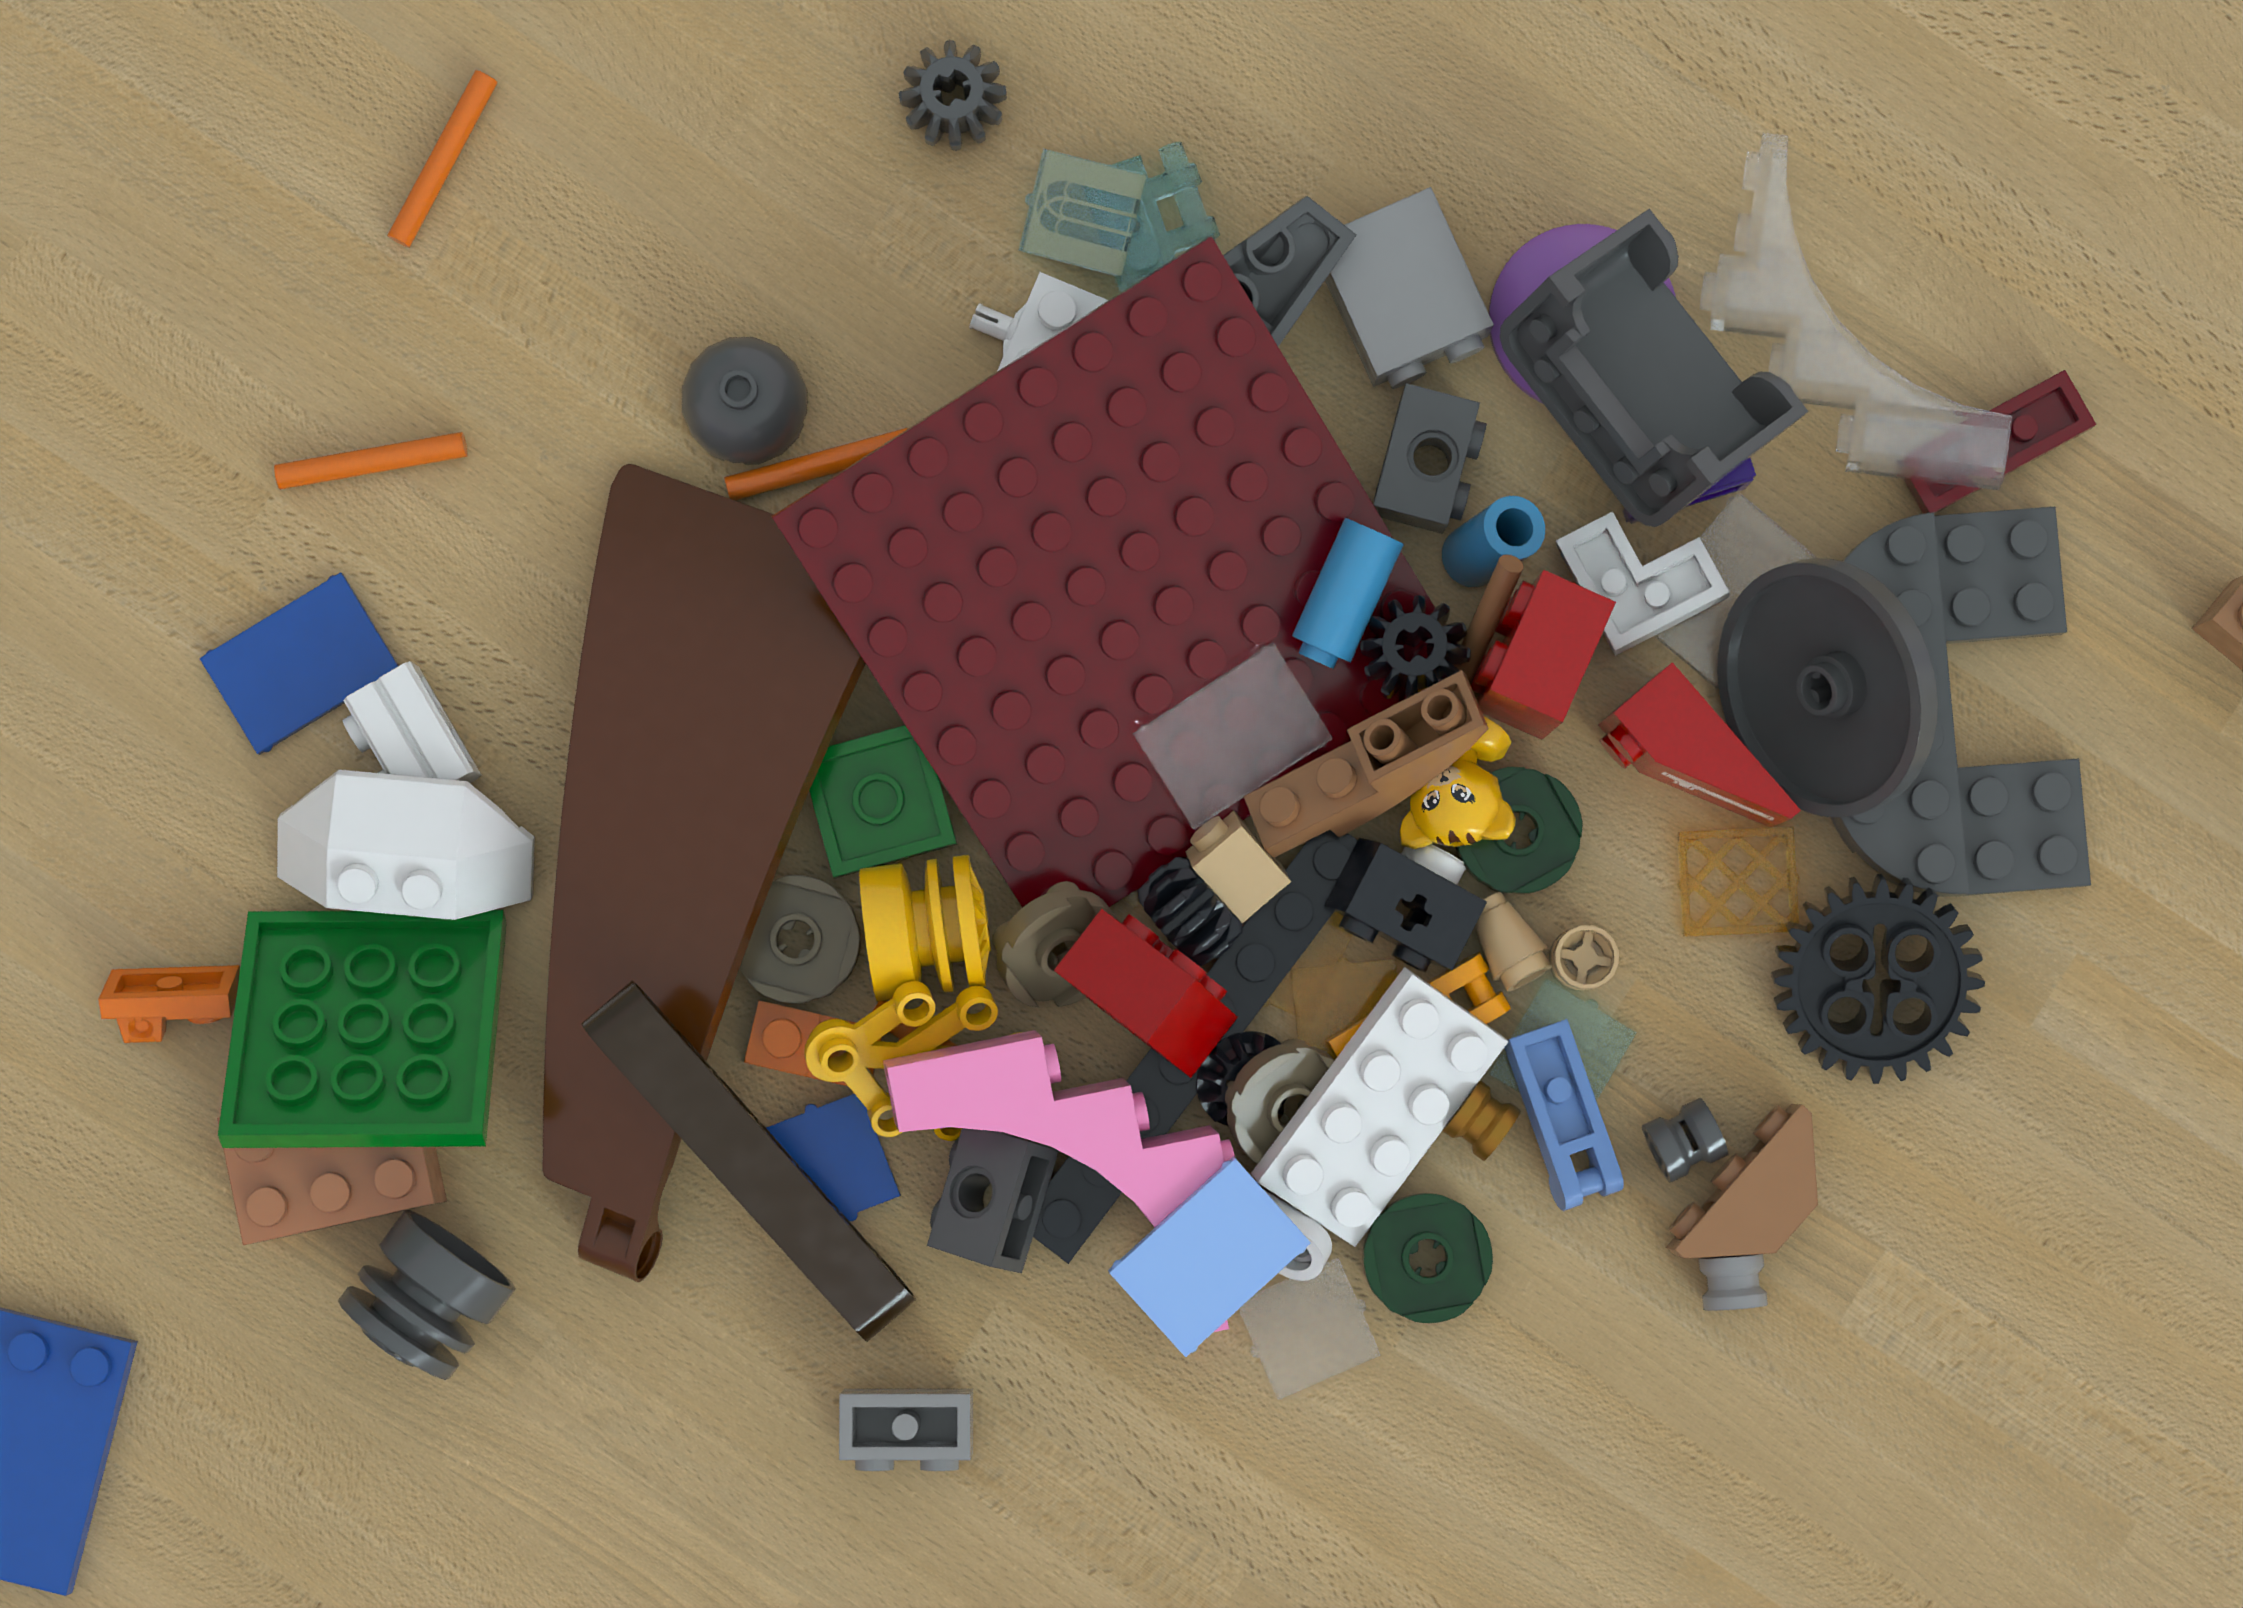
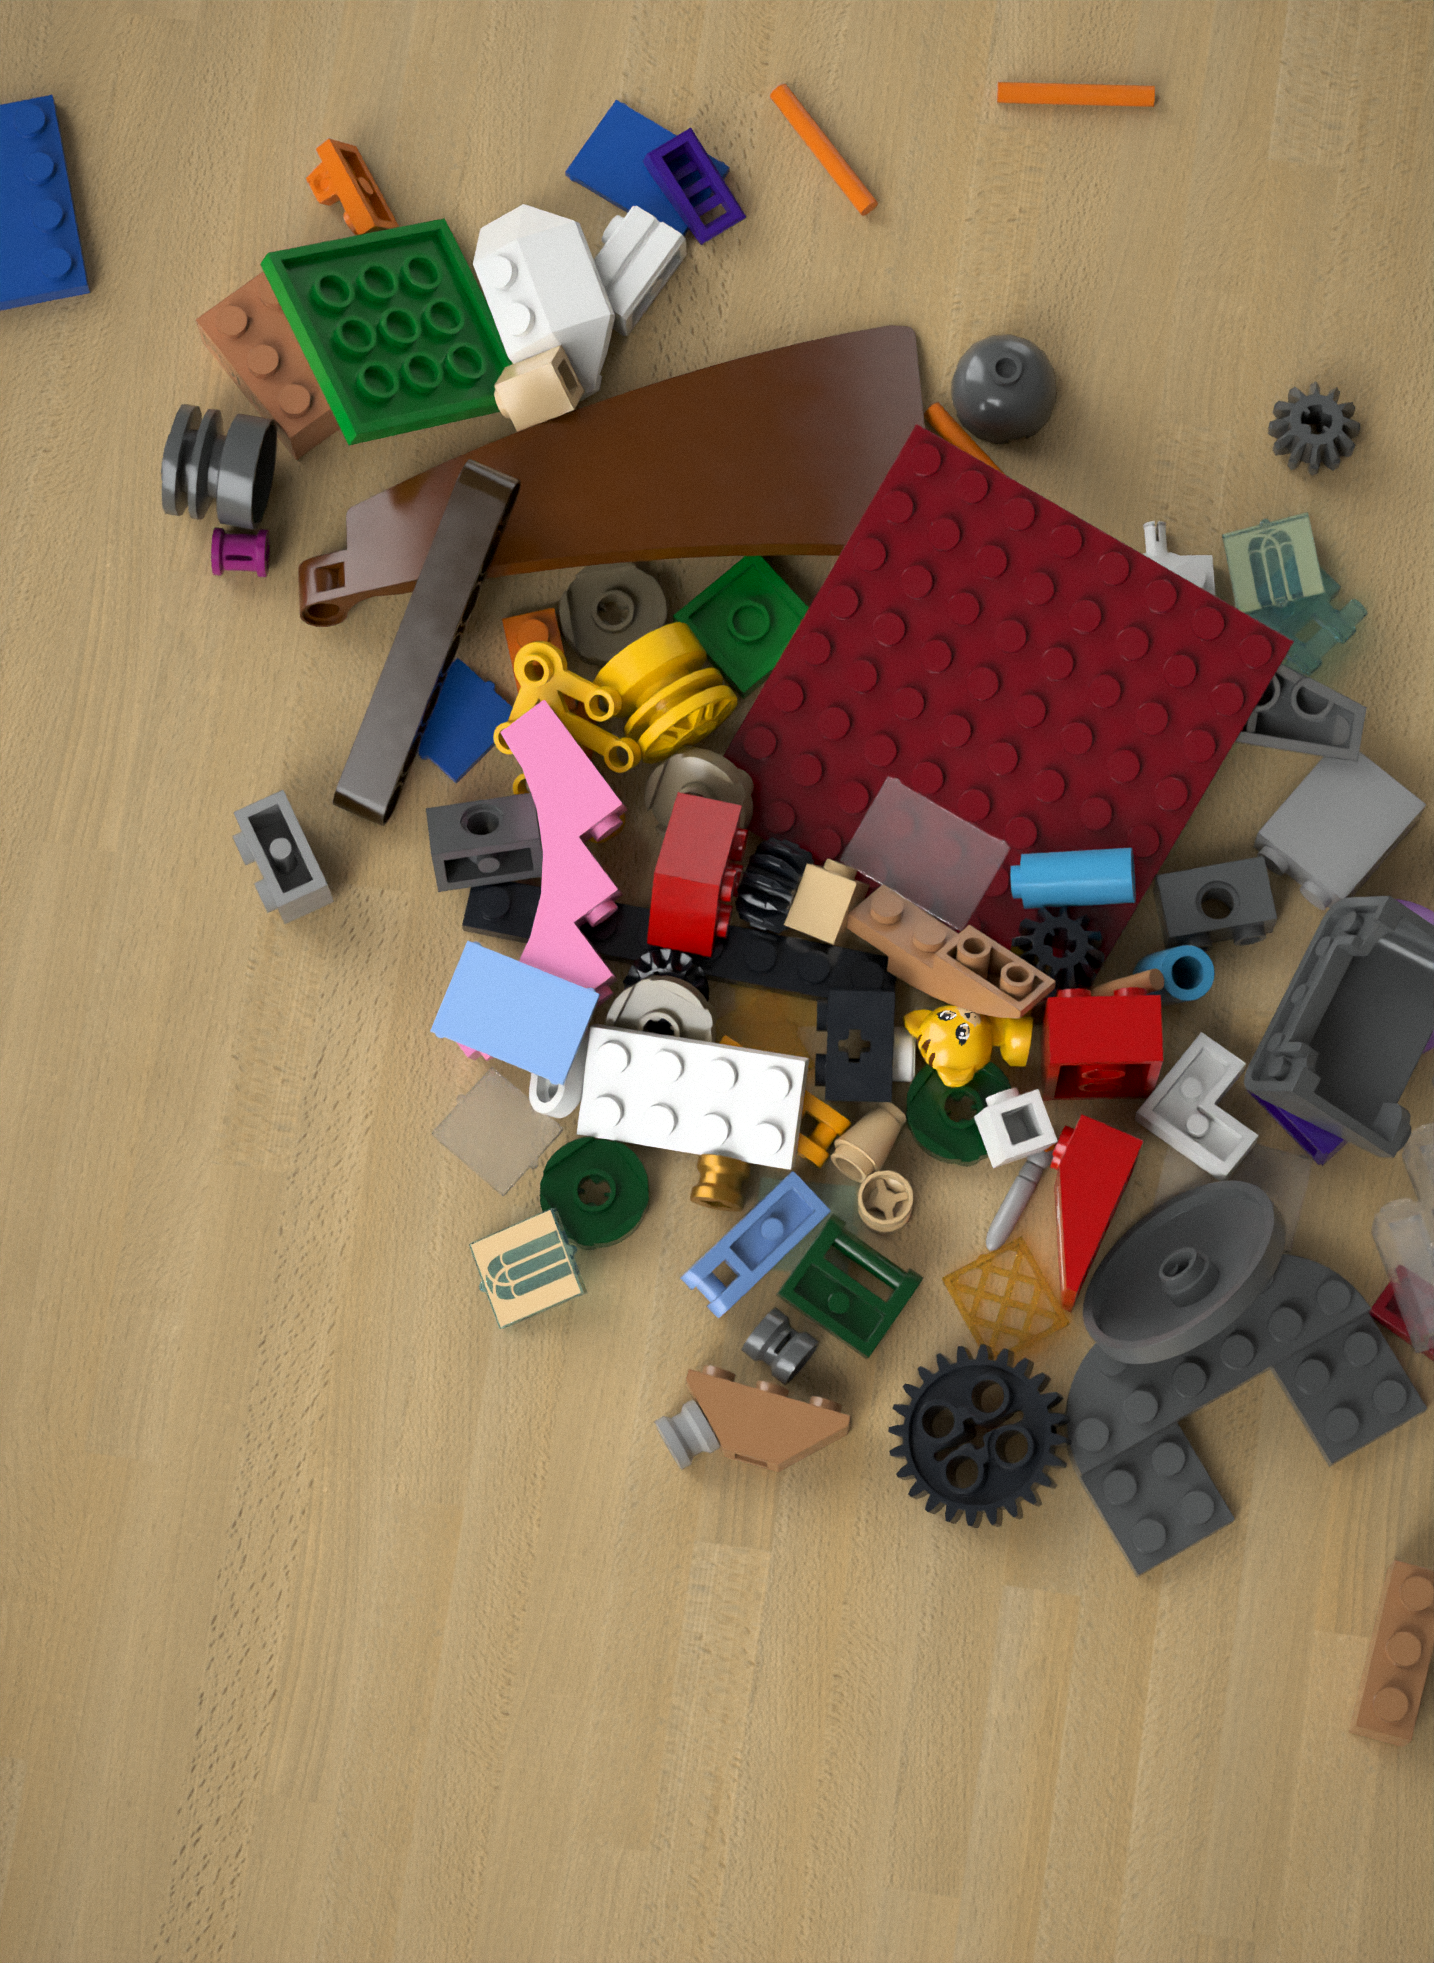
camera: 70 degrees right, 10 degrees down
(327, 648) = (688, 144): none -> dark purple slope
(510, 904) = (538, 389): none -> tan brick
(529, 1312) = (240, 552): none -> magenta bush
(1477, 1366) = (528, 1268): none -> piece
(1583, 786) = (1014, 1126): none -> white brick
(1606, 775) = (1017, 1198): none -> light grey piece
(1665, 1056) = (838, 1300): none -> dark green plate

